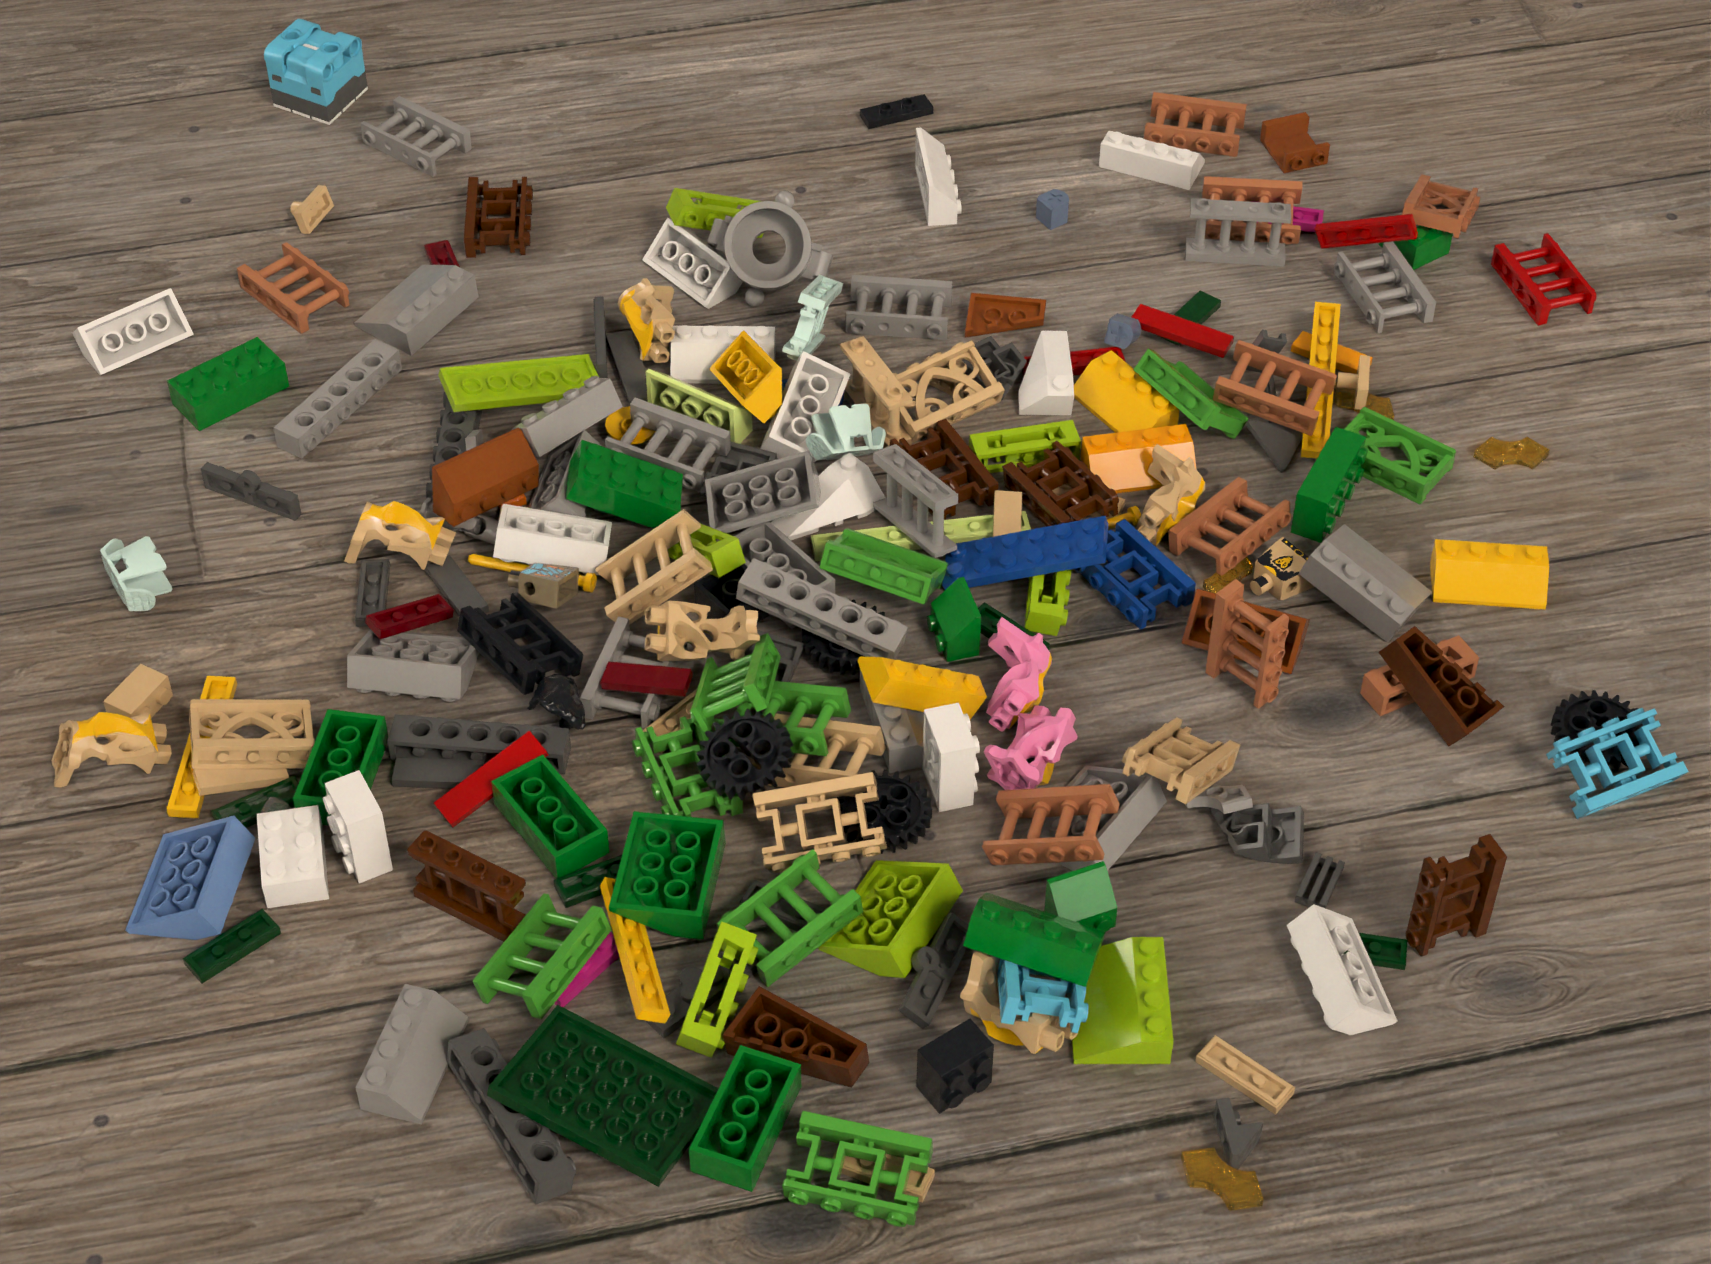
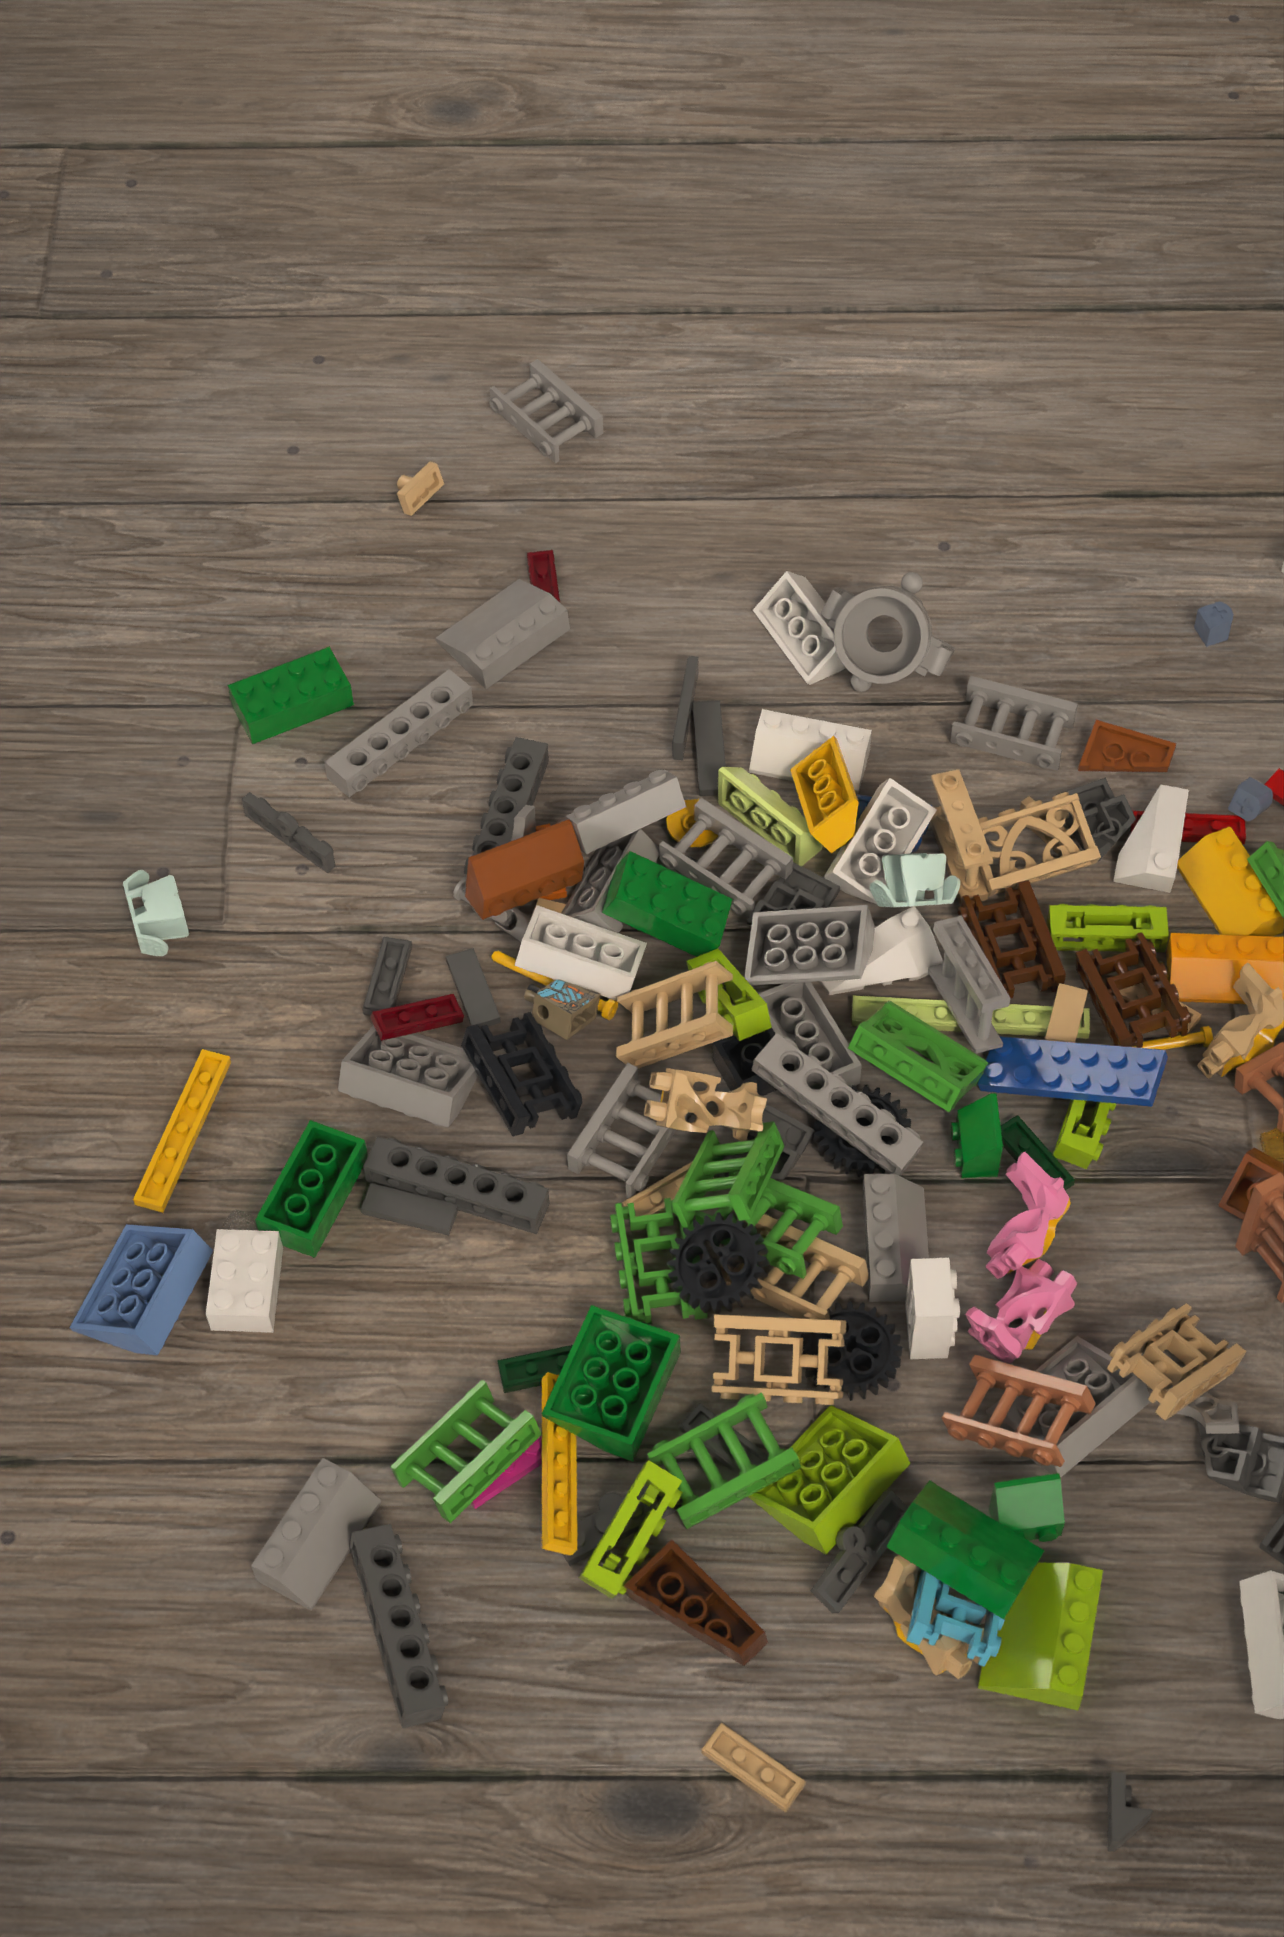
camera: 15 degrees right, 10 degrees up
(130, 742) = (109, 1106): tan hips -> none
(133, 332) = (207, 613): white slope -> none
(140, 693) = (130, 1062): tan brick -> none
(228, 780) = (212, 1174): tan tile -> none
(232, 751) = (218, 1105): tan fence -> none
(232, 946) = (168, 1368): dark green tile -> none
(248, 807) = (211, 1213): dark green tile -> none
(285, 304) = (365, 602): nougat fence -> none
(315, 71) = (454, 315): medium azure piece -> none
(357, 827) = (310, 1267): white brick -> none
(416, 536) = (440, 918): tan hips -> none
(467, 886) = (406, 1357): reddish brown fence -> none
(477, 787) = (458, 1231): red tile -> none
(497, 230) = (588, 526): reddish brown fence -> none
(514, 382) = (587, 752): lime plate -> none
(550, 817) = (508, 1289): green brick -> none
(560, 697) = (545, 1154): black piece -> none
(605, 1094) = (495, 1627): dark green plate -> none
(646, 679) = (639, 1146): dark red tile -> none
(649, 318) = (737, 697): tan hips -> none
(702, 213) = (838, 569): lime brick -> none
(745, 1118) = (627, 1683): green brick -> none
(816, 299) = (912, 728): light aqua fence -> none
(864, 1143) = (738, 1741): bright green fence -> none
(896, 111) = (1072, 461): black plate -> none
(920, 686) = (922, 1214): yellow slope -> none
(936, 180) = (1093, 565): white slope -> none
(955, 1066) = (851, 1673): black brick -> none
(1150, 564) = (1209, 1108): blue fence -> none
(1208, 1171) = (1109, 1871): clear yellow tile -> none
(1245, 1074) = (1152, 1742): tan tile -> none

